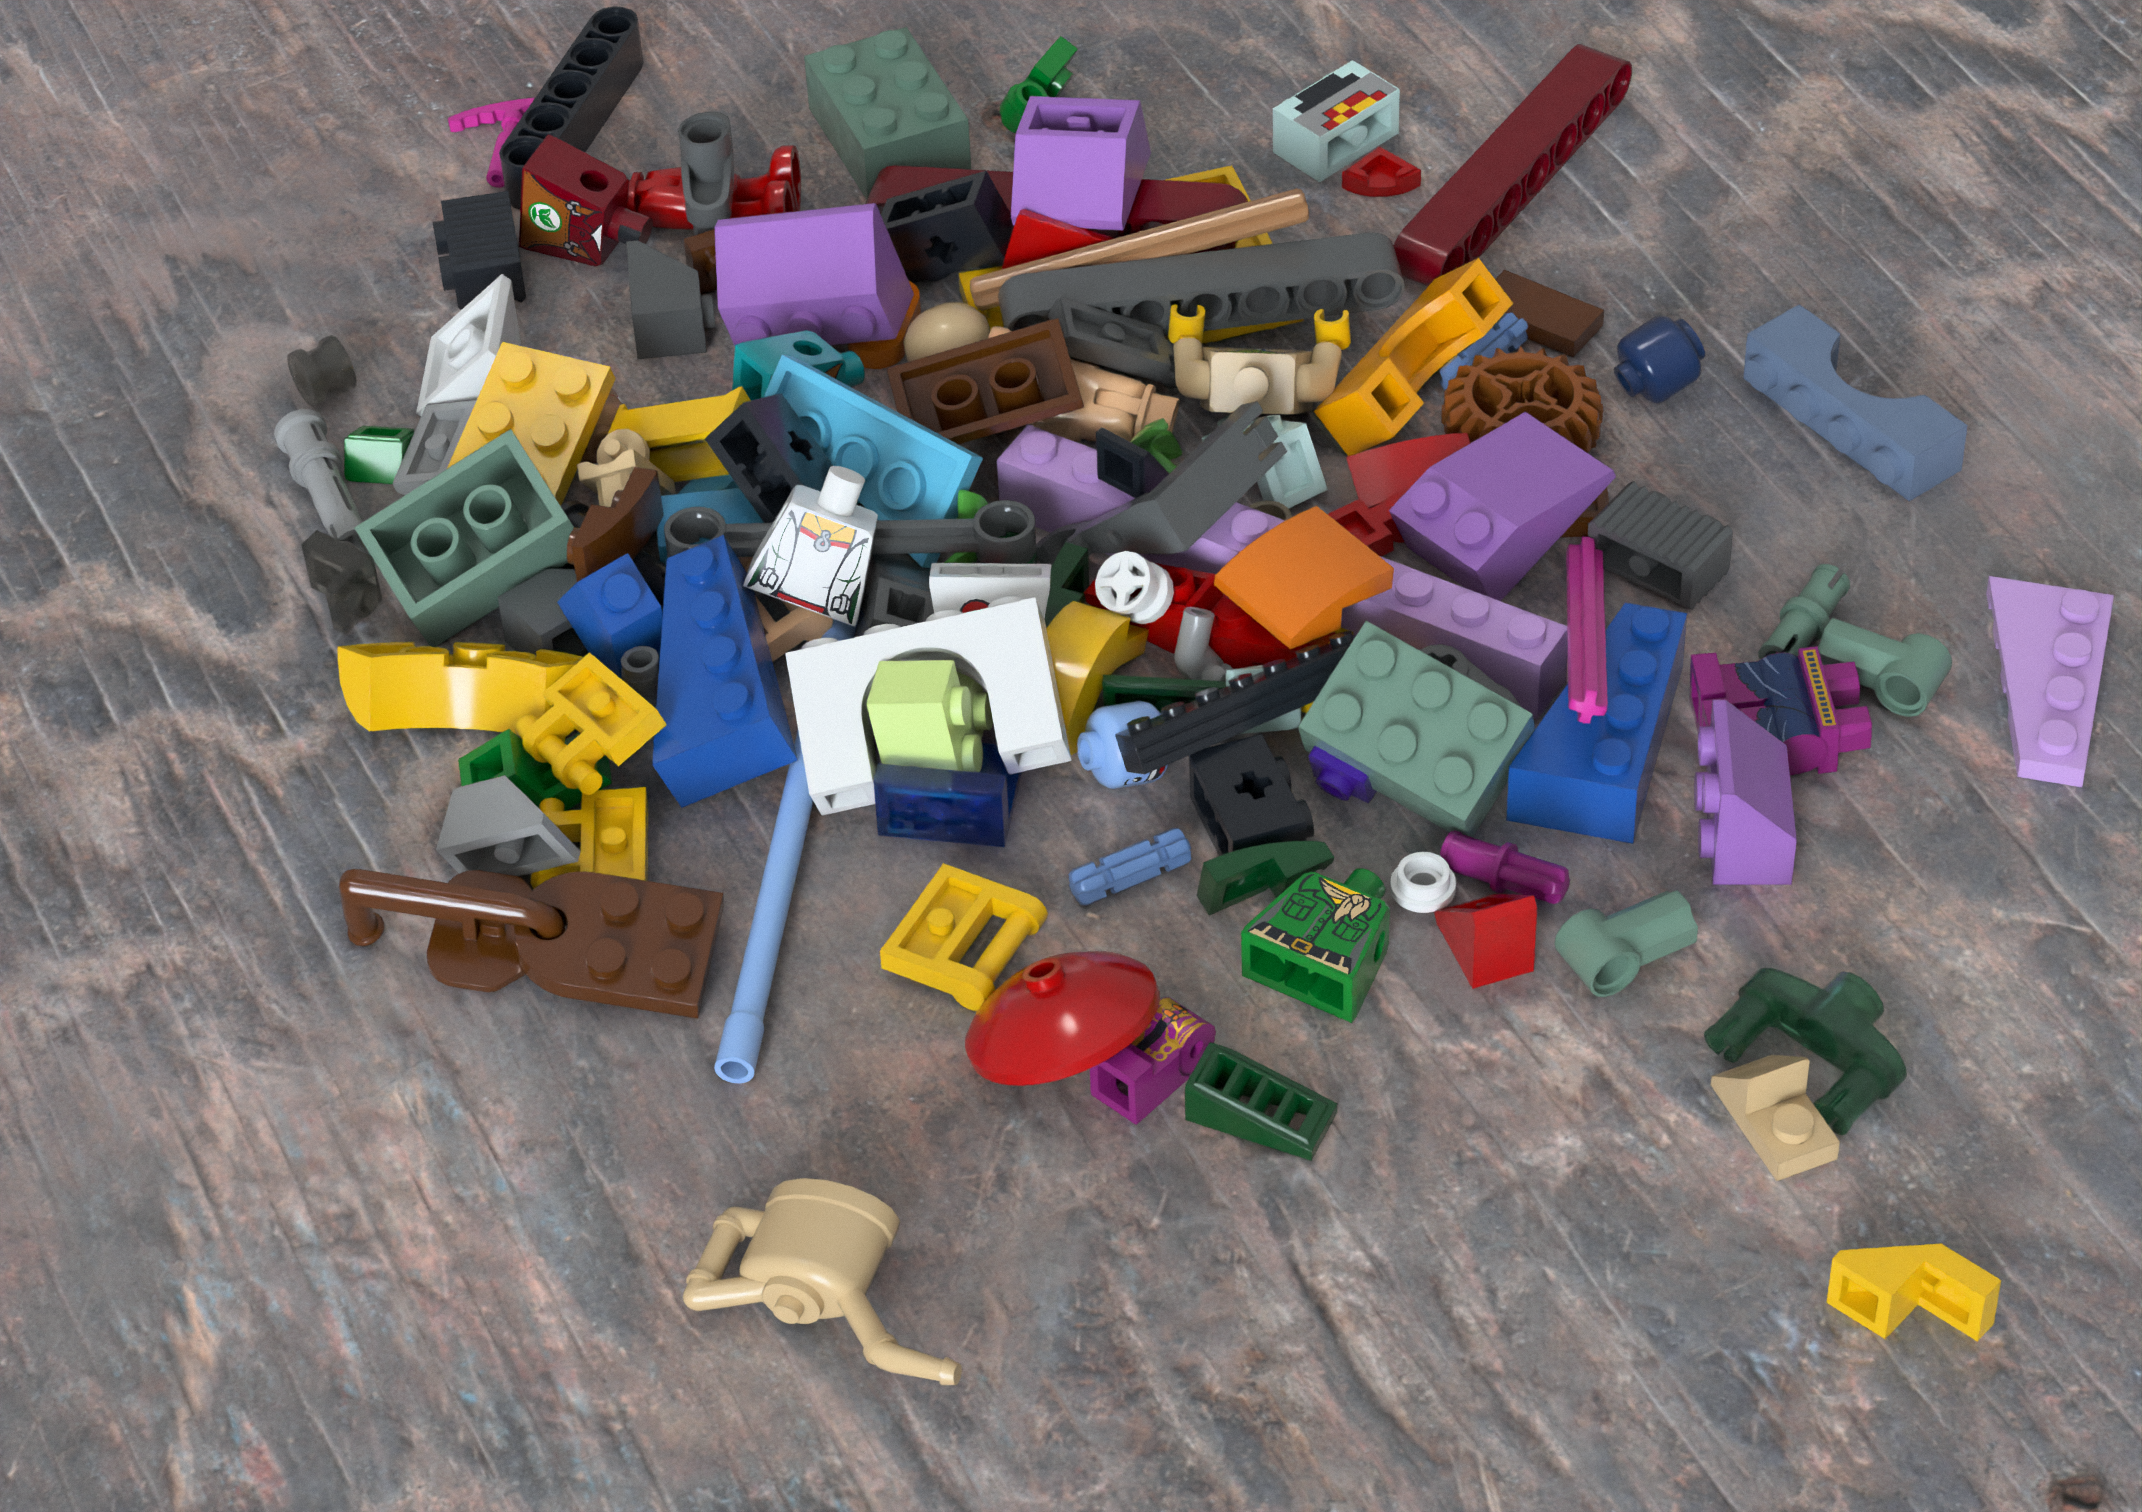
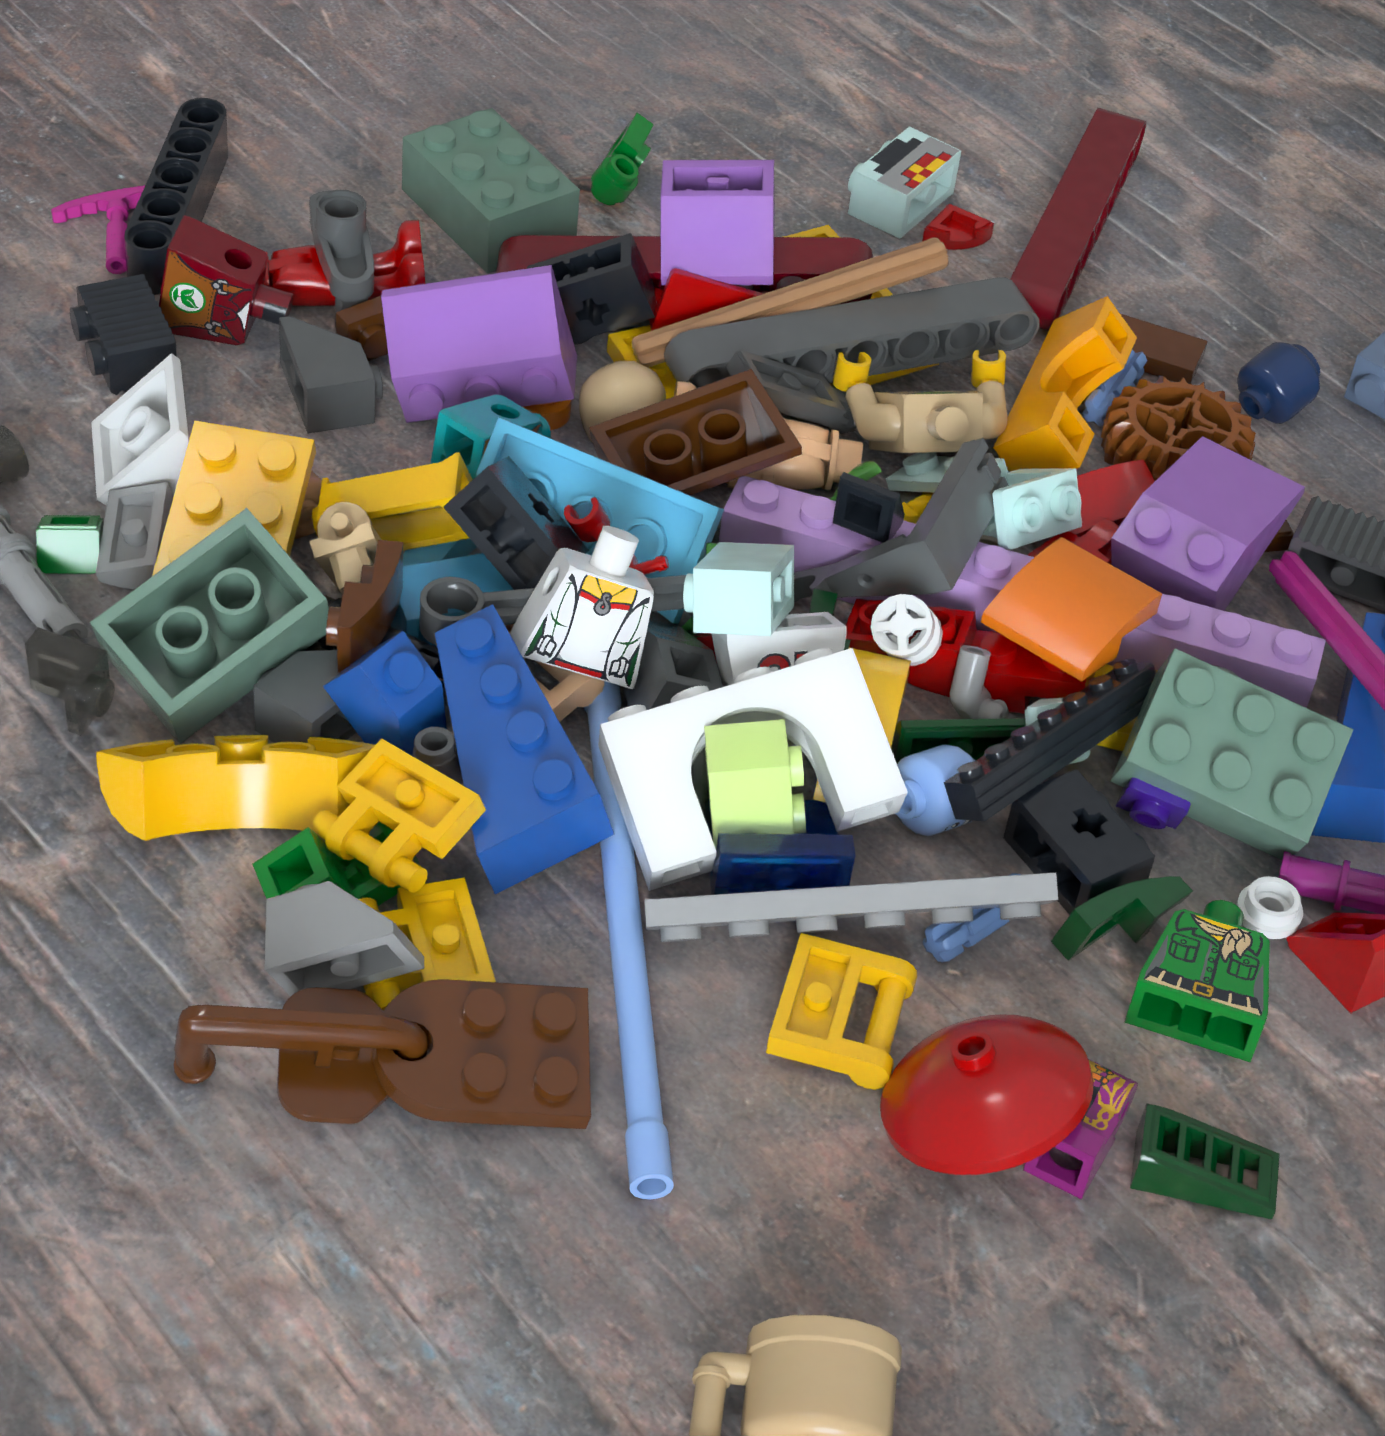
camera: 20 degrees left, 0 degrees up
(861, 461) = (589, 530): none -> red piece
(961, 534) = (741, 589): none -> light aqua brick
(1019, 841) = (879, 904): none -> light grey plate
(1320, 475) = (1036, 505): none -> light aqua bracket

